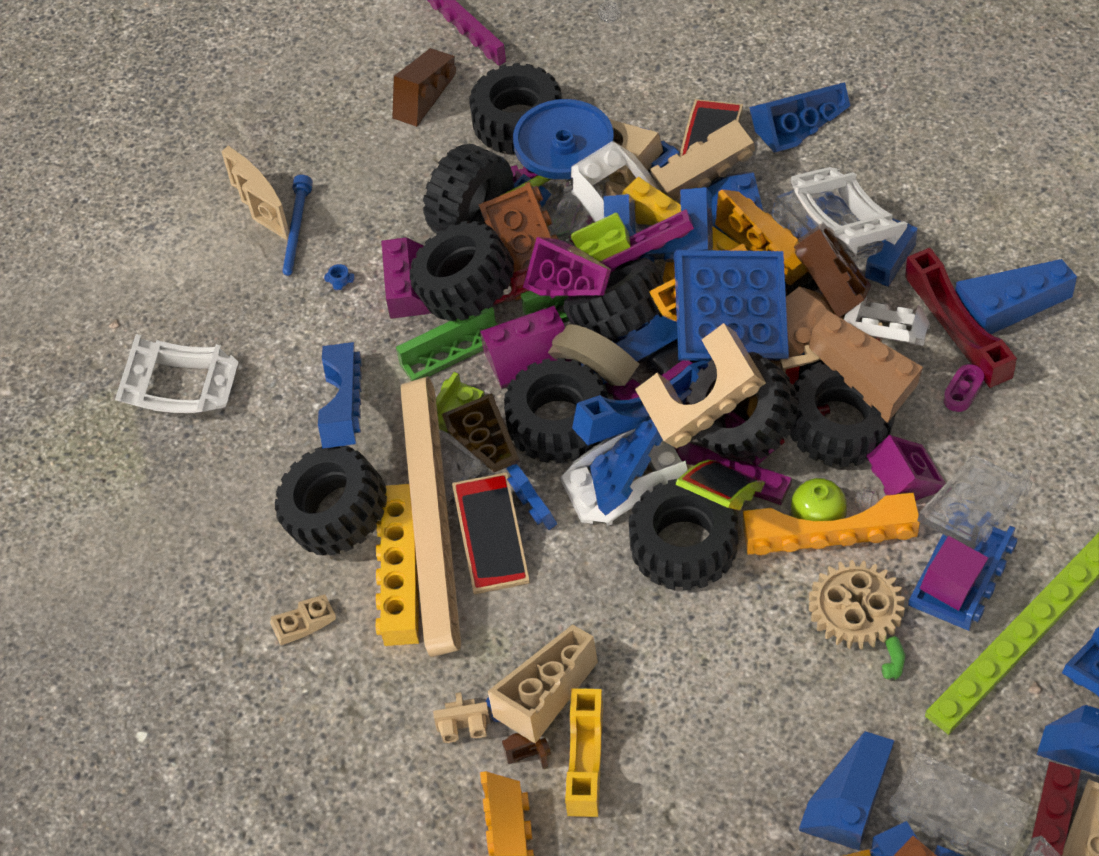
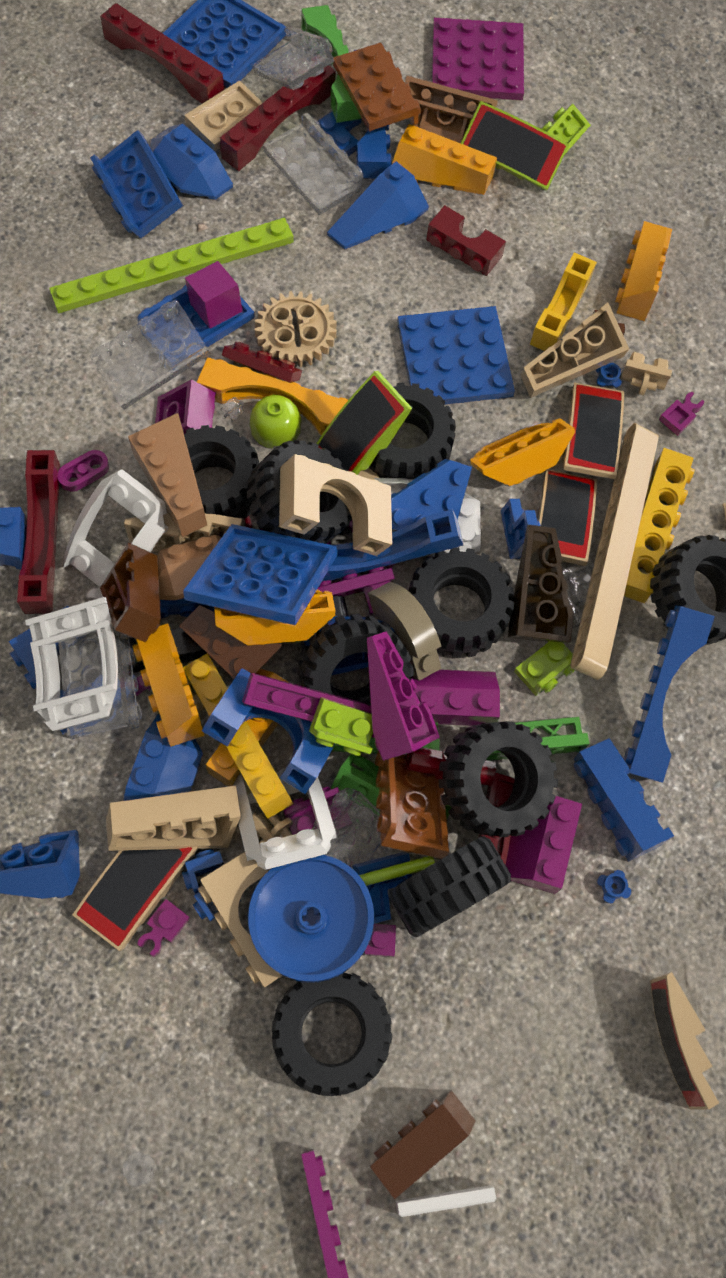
camera: 170 degrees left, 15 degrees up
(302, 187) = (620, 1042): blue piece -> none
(349, 321) = (620, 801): none -> blue wedge
(384, 71) = (445, 1201): none -> white tile
(408, 690) = (680, 414): none -> magenta plate
(492, 627) = (598, 424): none -> black slope
(564, 569) = (524, 452): none -> light orange wedge
(674, 128) = (166, 924): none -> magenta plate
(676, 658) = (457, 354): none -> blue plate
(708, 781) = (479, 252): none -> dark red arch
(871, 548) = (262, 361): none -> dark red plate
(897, 655) = (291, 278): bright green arm -> none

